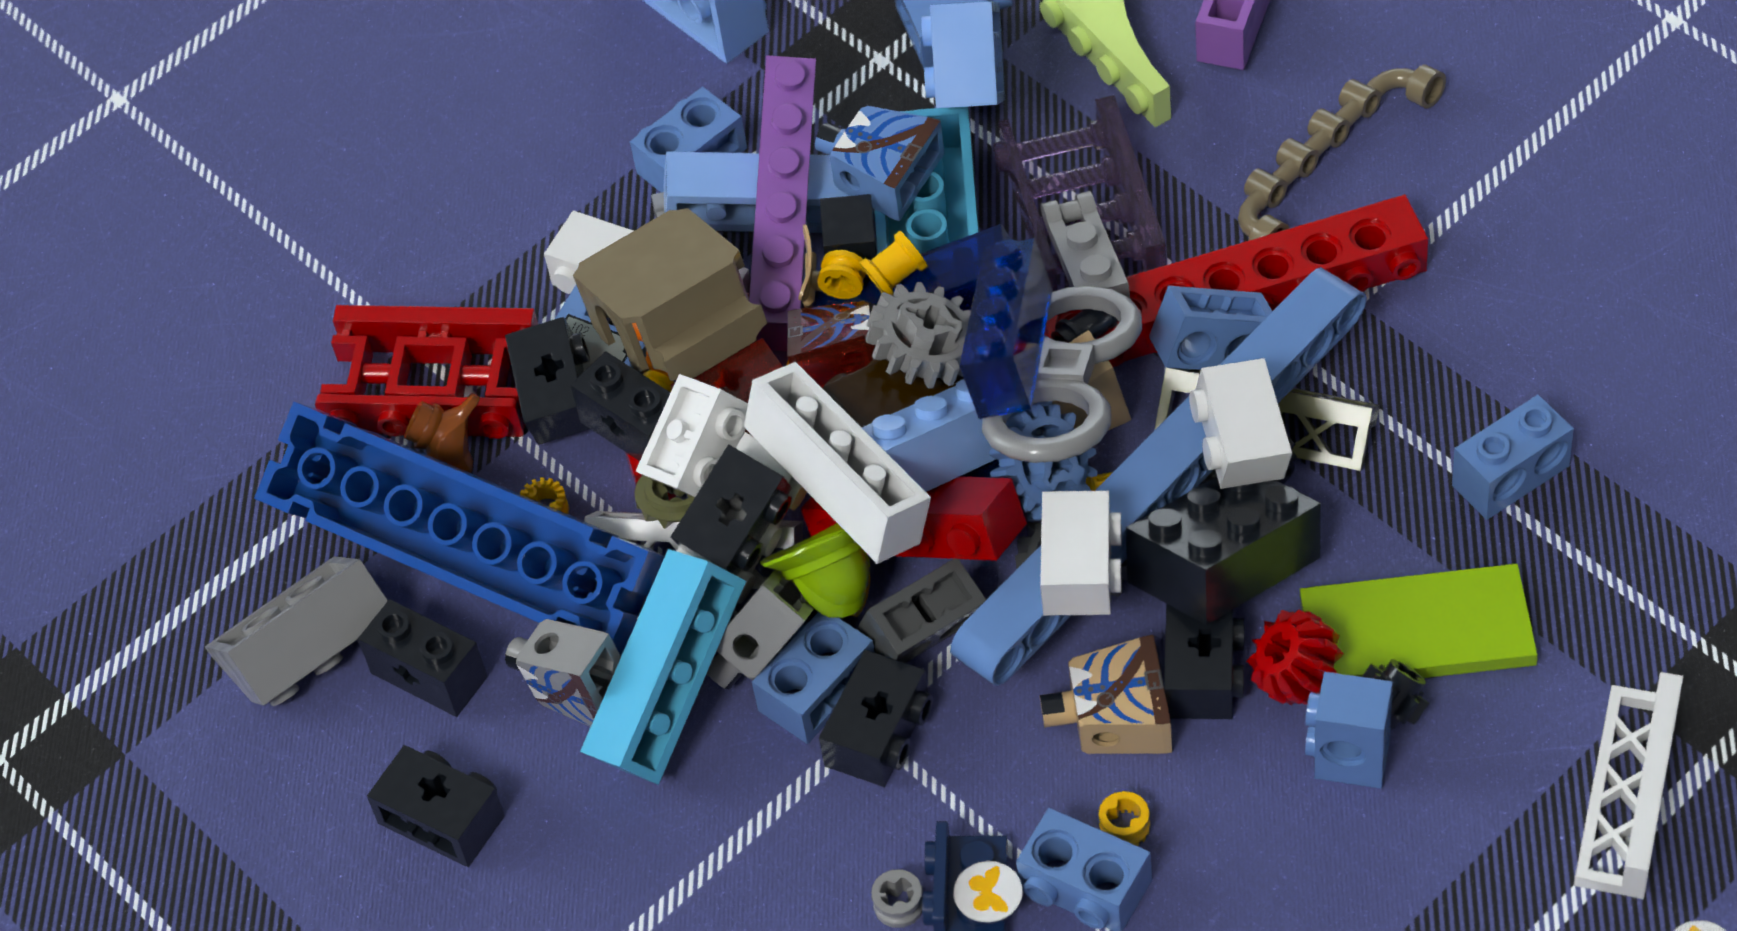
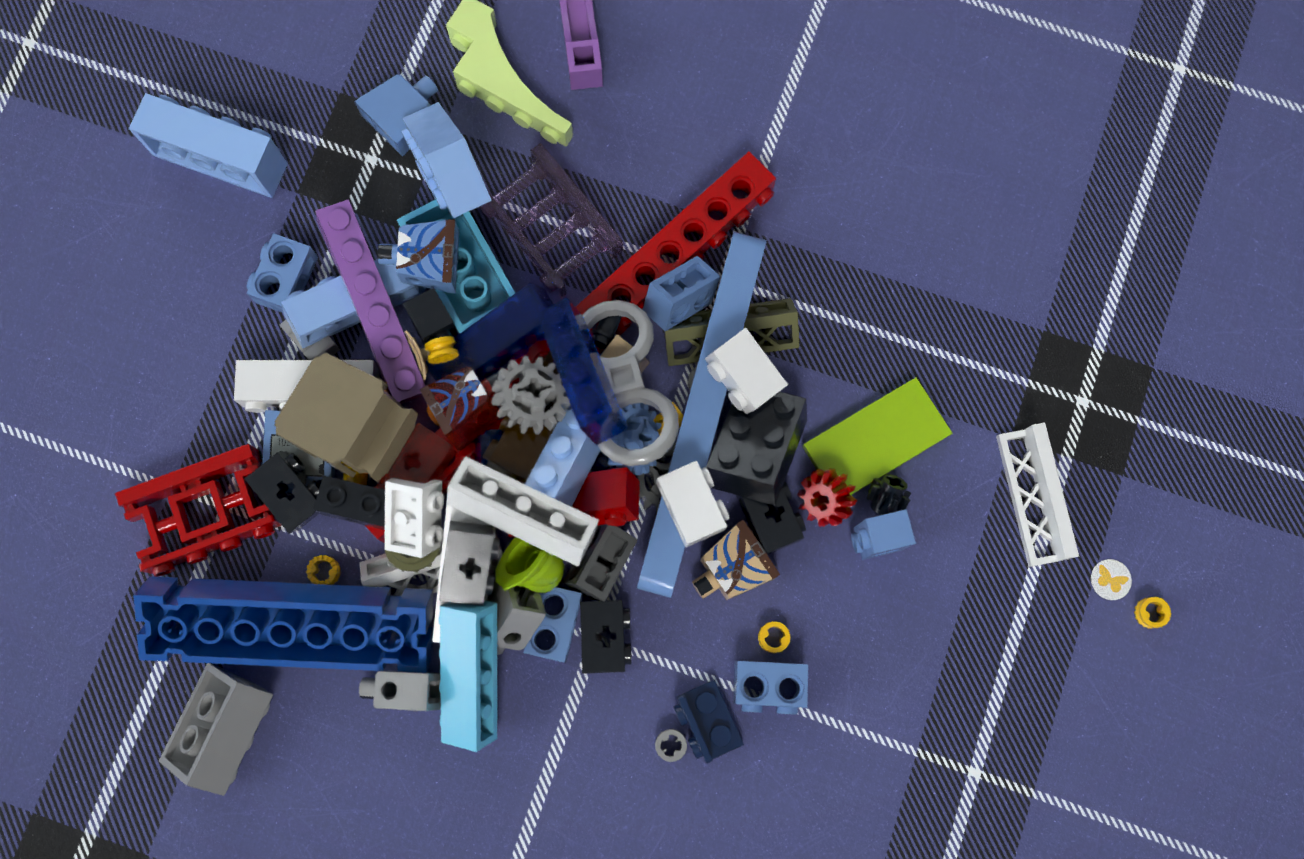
camera: 40 degrees left, 25 degrees up
(423, 657) = (306, 717): black brick -> none
(436, 804) = (349, 819): black brick -> none
(443, 432) = (237, 559): dark orange animal -> none
(894, 264) = (474, 335): yellow bush -> none
(988, 891) = (724, 724): white sticker -> none
(1084, 246) = (578, 266): light grey plate -> none
(1327, 129) = (674, 113): dark tan bar -> none
(1512, 457) = (885, 308): medium blue brick -> none

